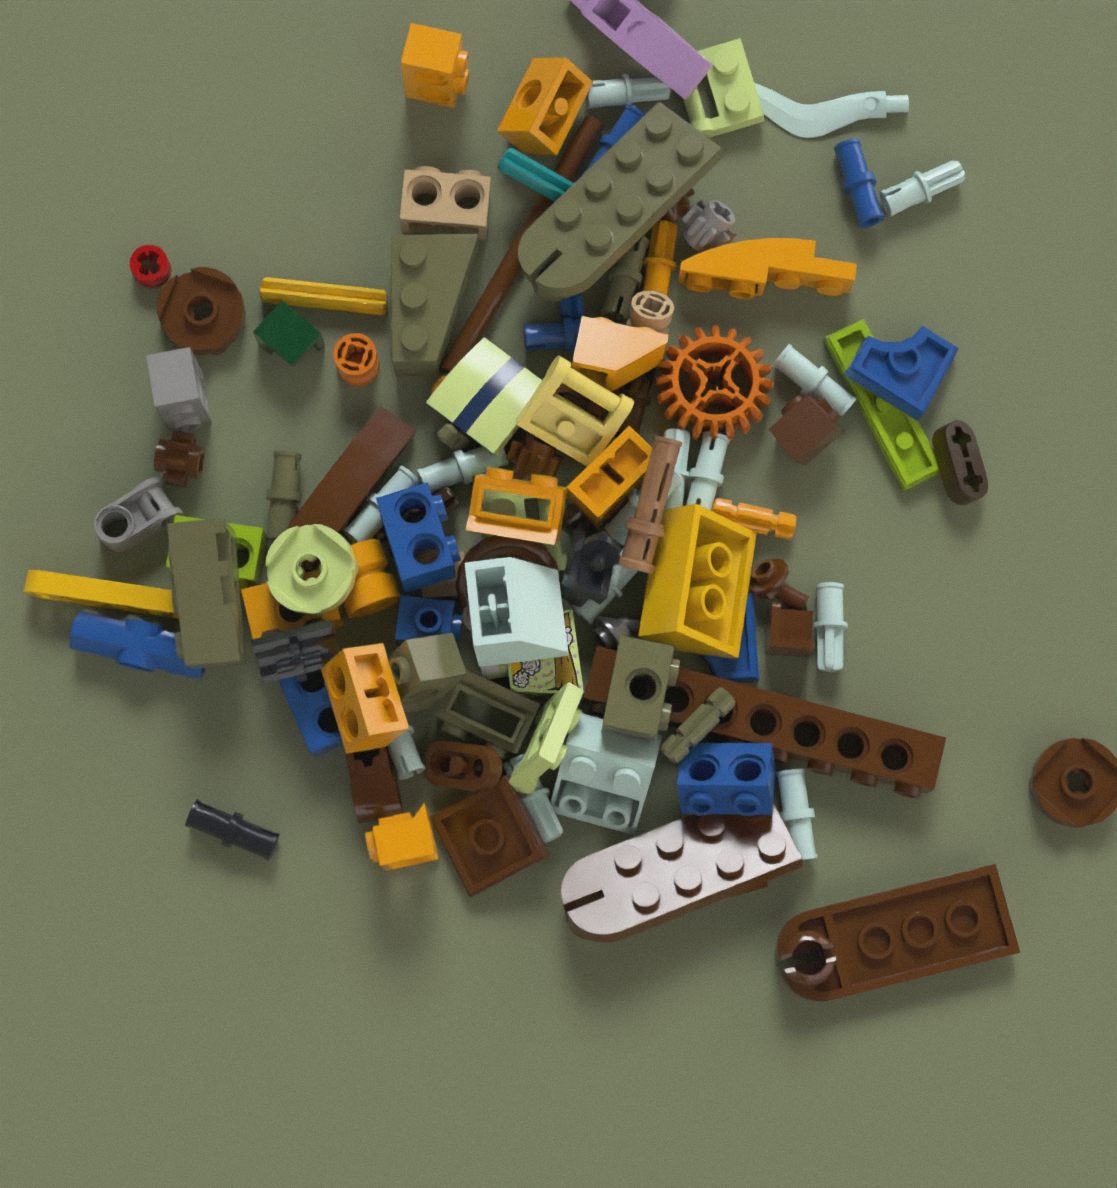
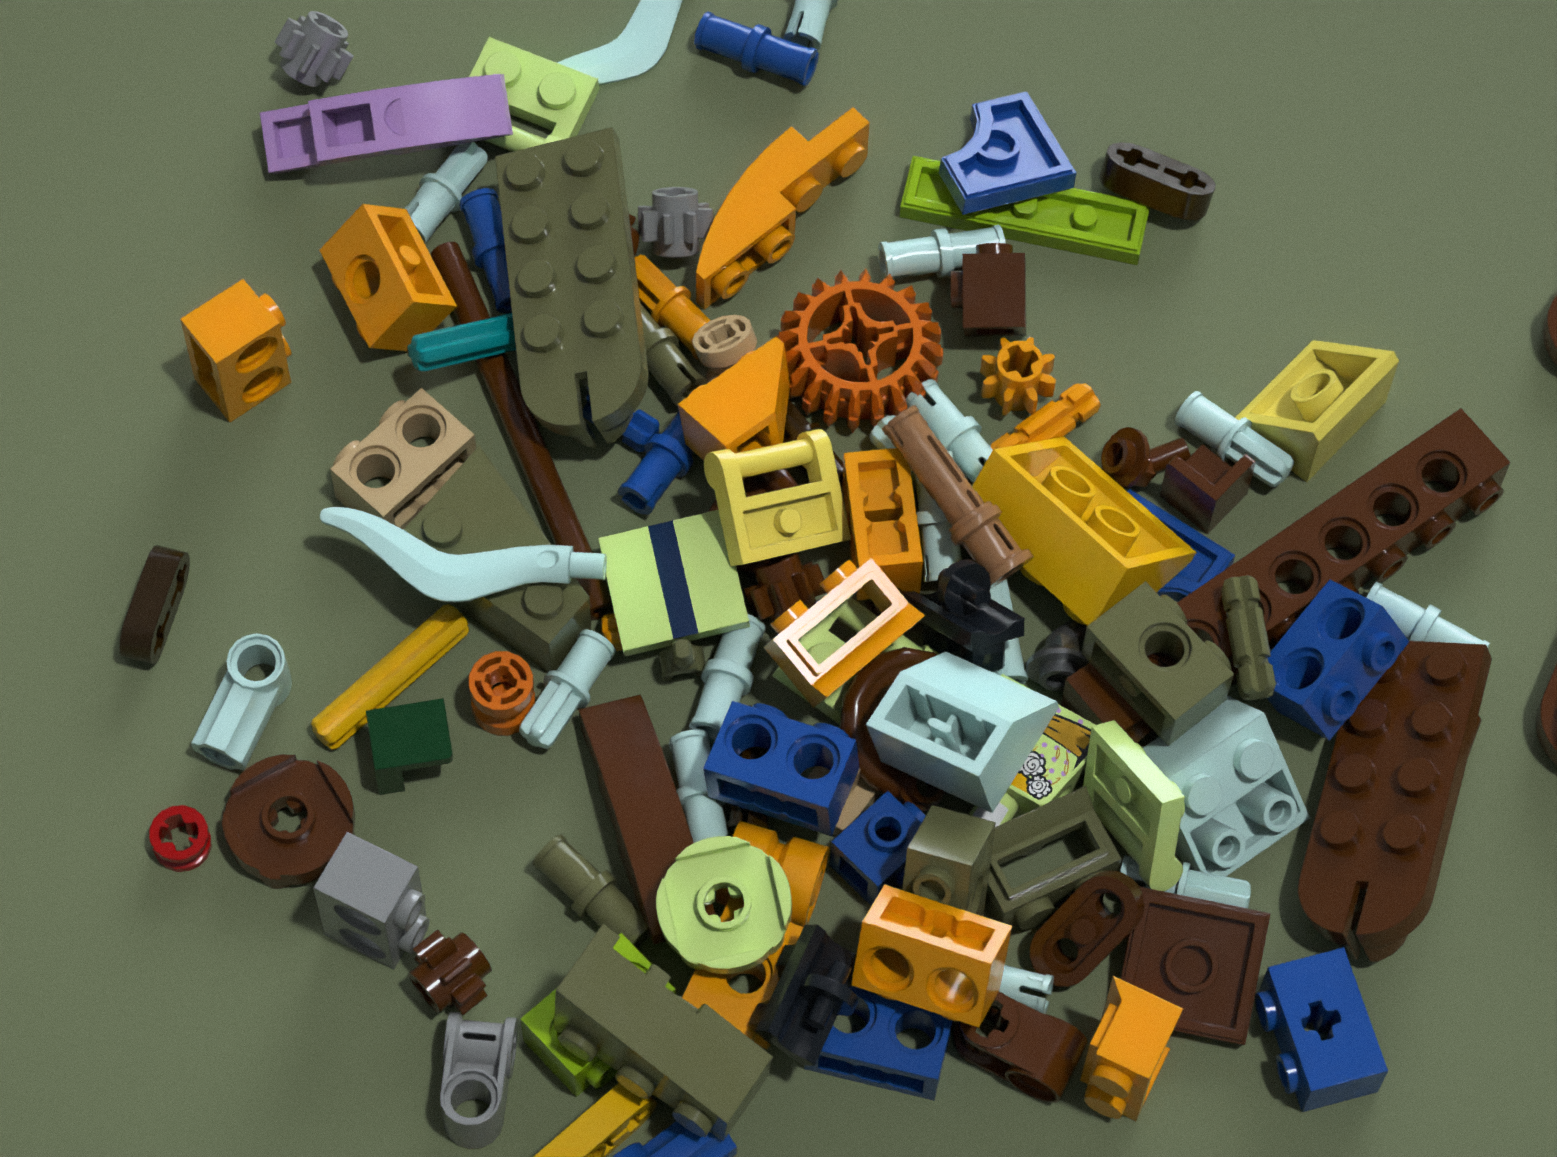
camera: 50 degrees left, 15 degrees down
(241, 236) = (242, 705): none -> light aqua piece
(264, 146) = (154, 604): none -> dark brown beam
(386, 390) = (566, 689): none -> light aqua axle
(392, 289) = (466, 575): none -> light aqua piece
(530, 918) = (1327, 994): none -> blue brick
(759, 474) = (1017, 376): none -> light orange gear
(891, 654) = (1321, 401): none -> light yellow slope

